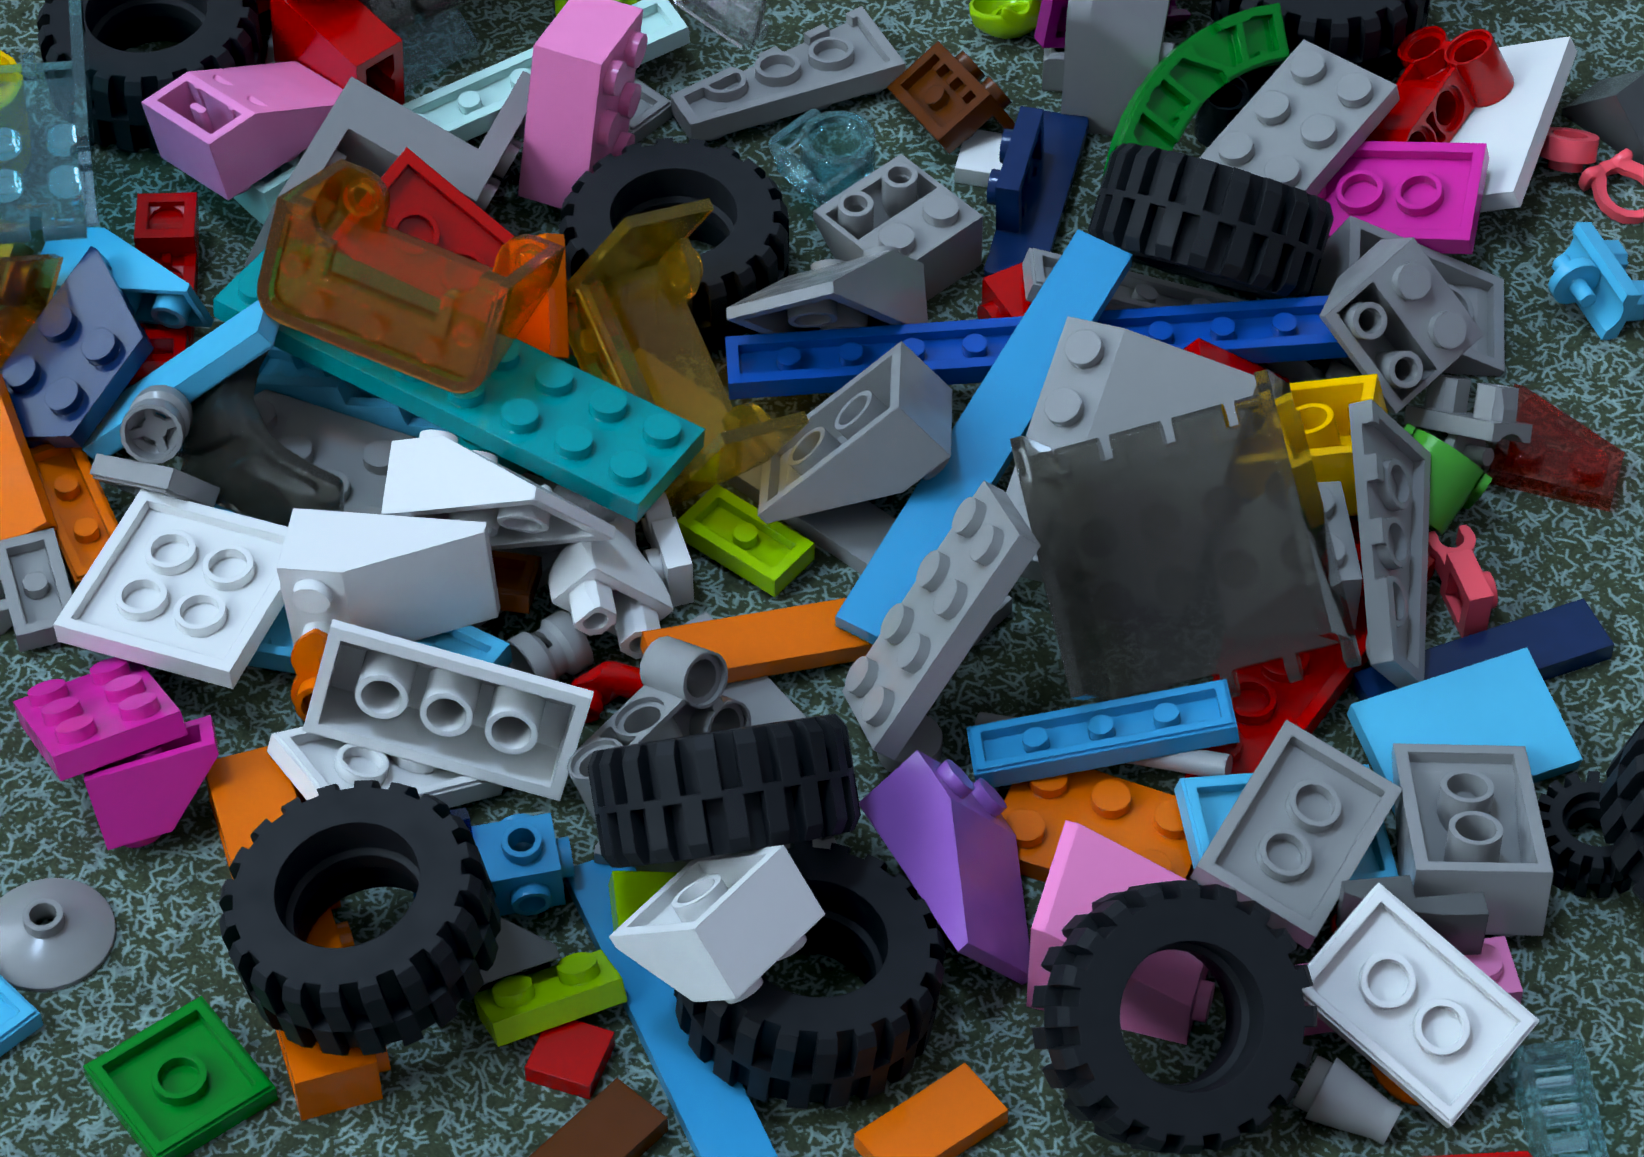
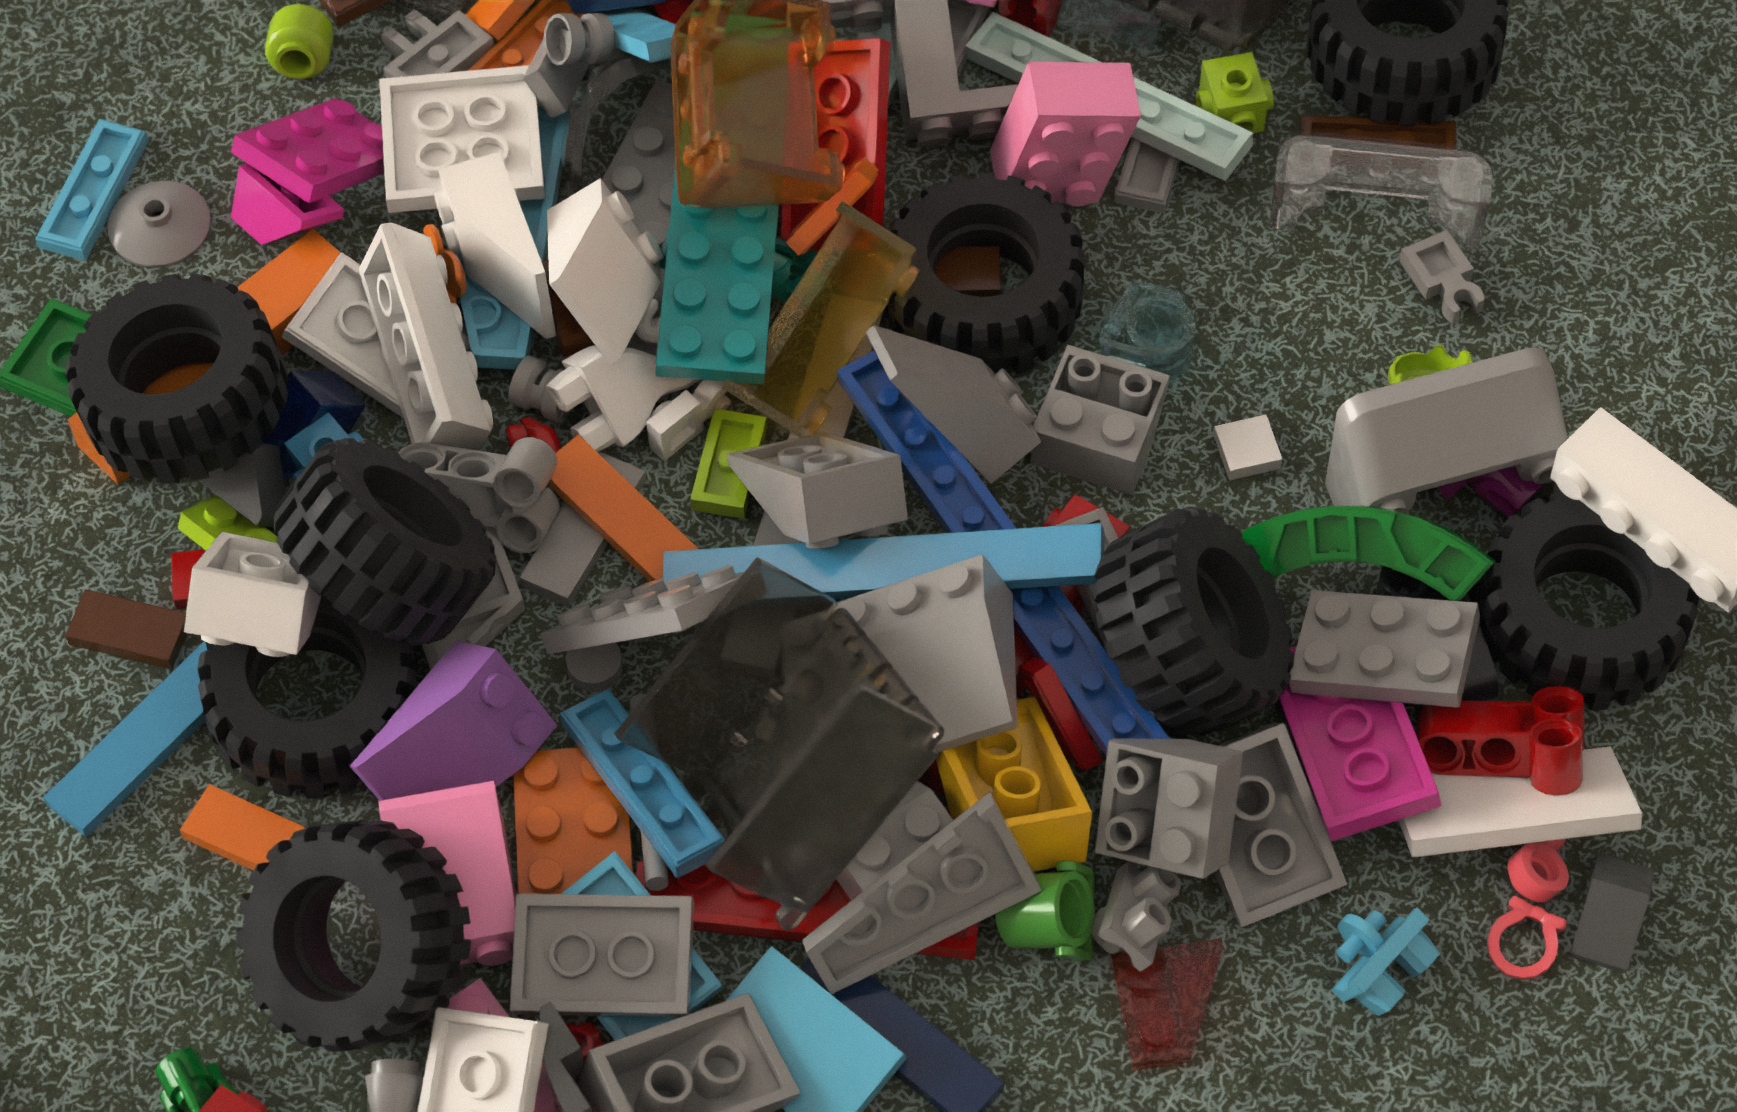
camera: 65 degrees right, 10 degrees up
(815, 74) = (1268, 288): light grey wing -> none
(948, 96) = (1286, 388): reddish brown bracket -> none
(1033, 183) = (1232, 480): dark blue bracket -> none
(1464, 586) = (960, 986): coral plate -> none

